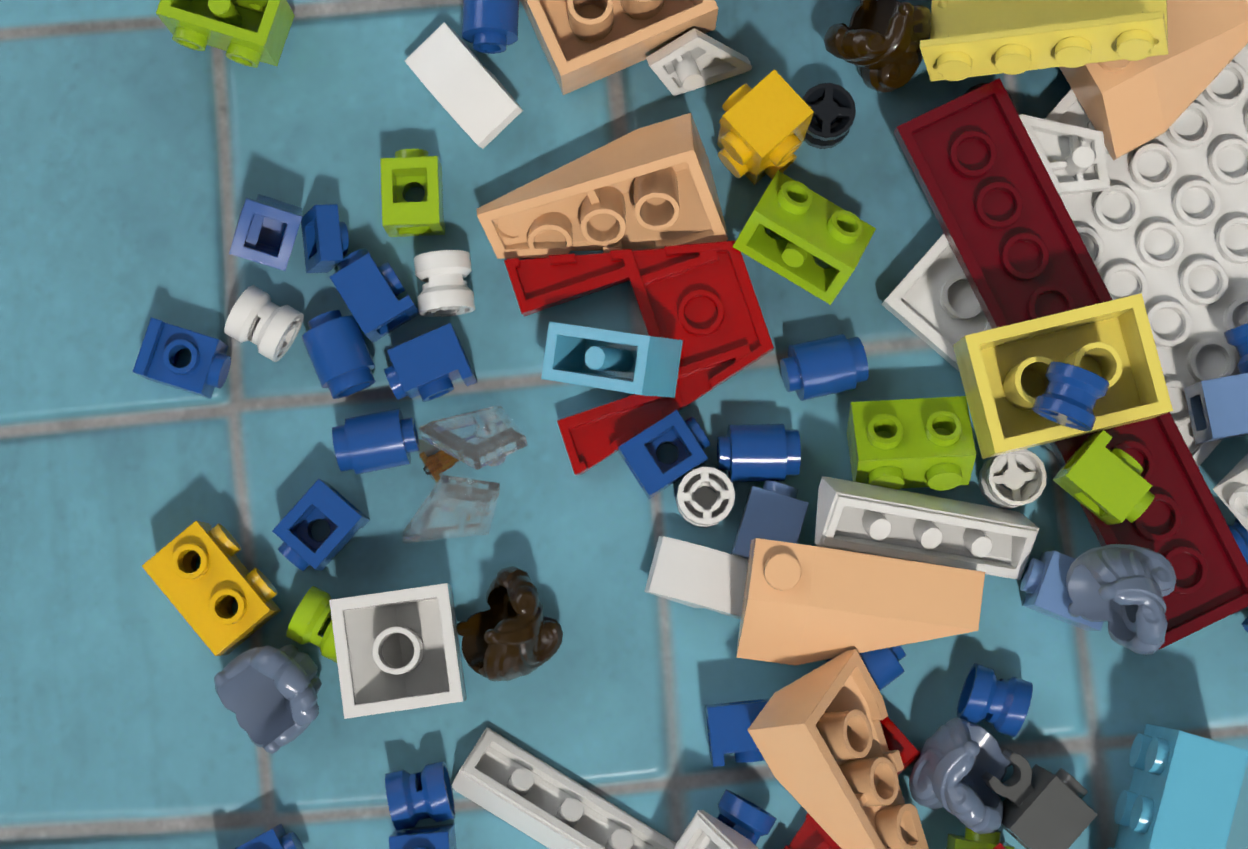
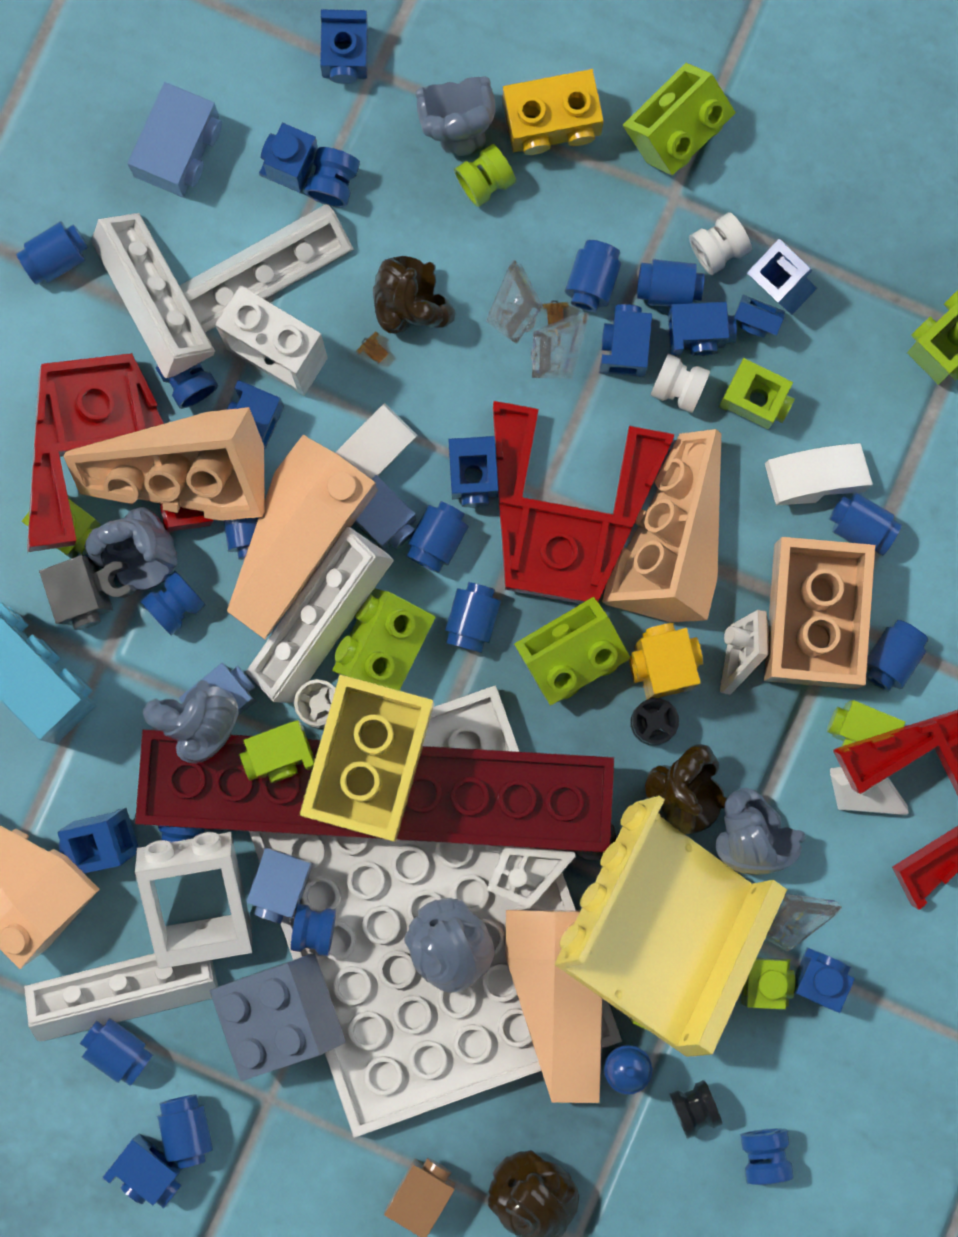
camera: 115 degrees right, 0 degrees up
(146, 441) = (679, 118): none -> lime brick
(161, 350) = (739, 162): blue brick -> none
(318, 503) = (558, 188): blue brick -> none
(397, 650) = (437, 212): white slope -> none
(587, 642) = (372, 348): none -> clear orange piece
(612, 360) = (558, 464): medium azure brick -> none
(647, 778) = (261, 330): none -> white window
(705, 506) = (424, 488): white wheel -> none
(1070, 396) = (348, 741): blue wheel -> none
(1195, 180) = (449, 945): none -> sand blue hair

